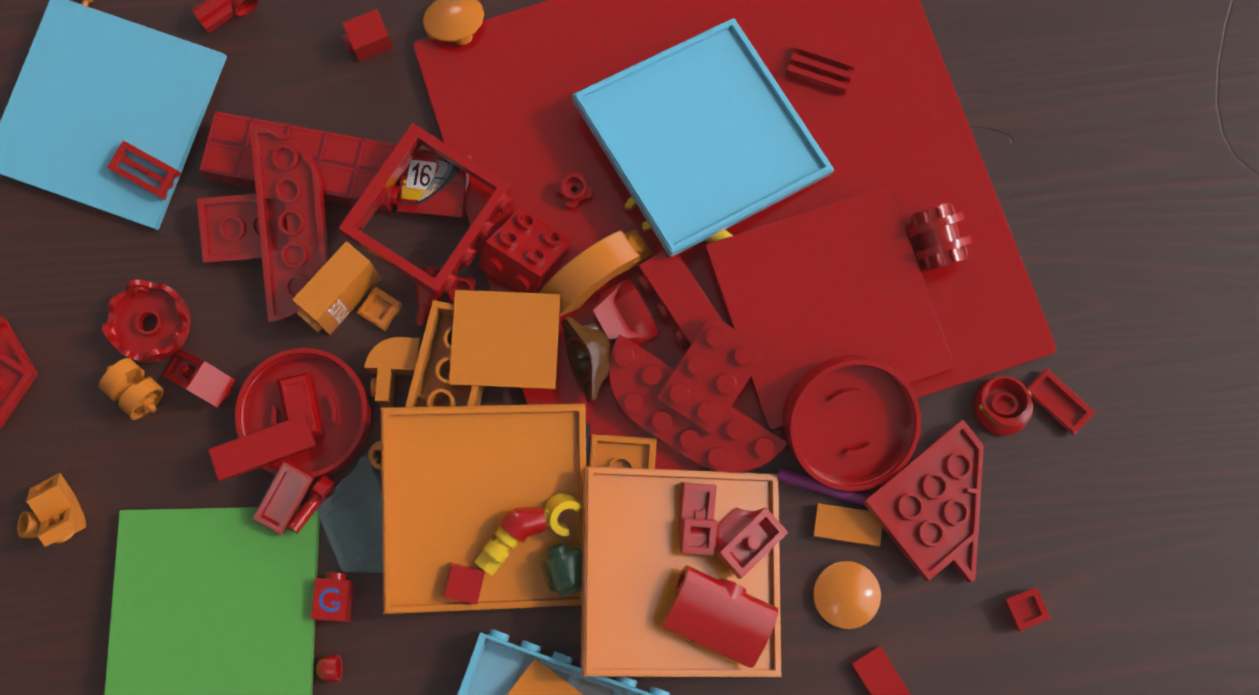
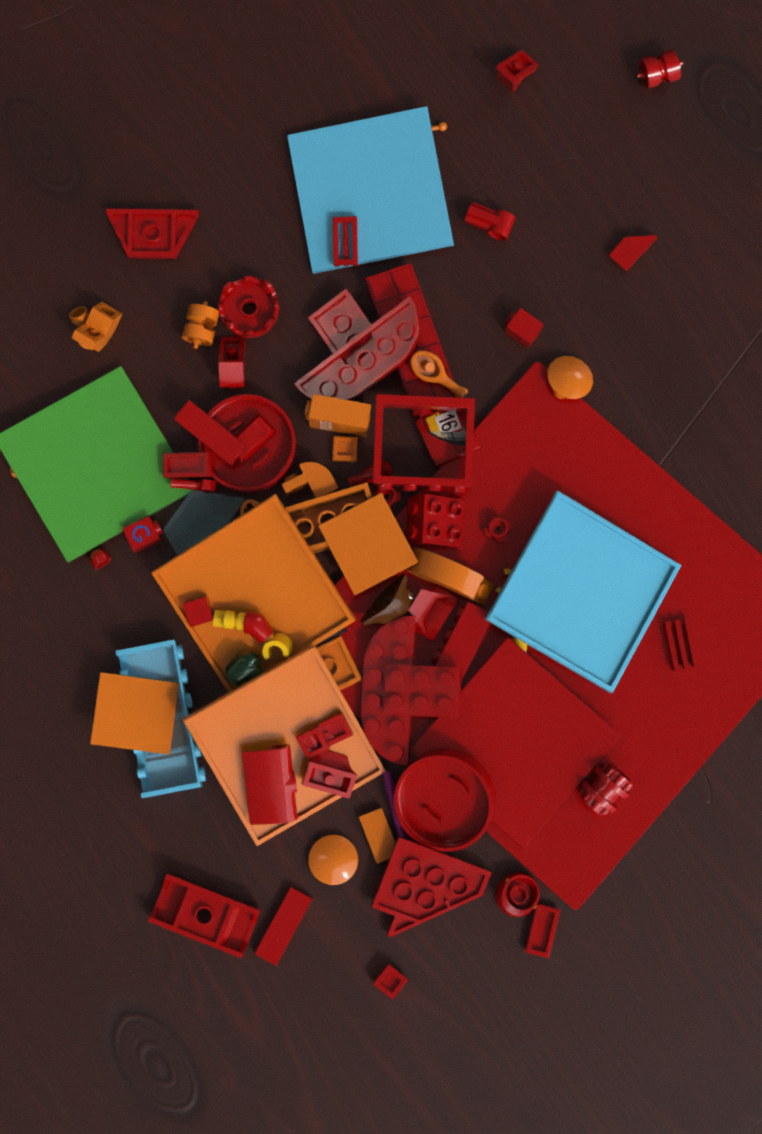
camera: 50 degrees right, 5 degrees up
(349, 155) = (431, 369): none -> orange piece

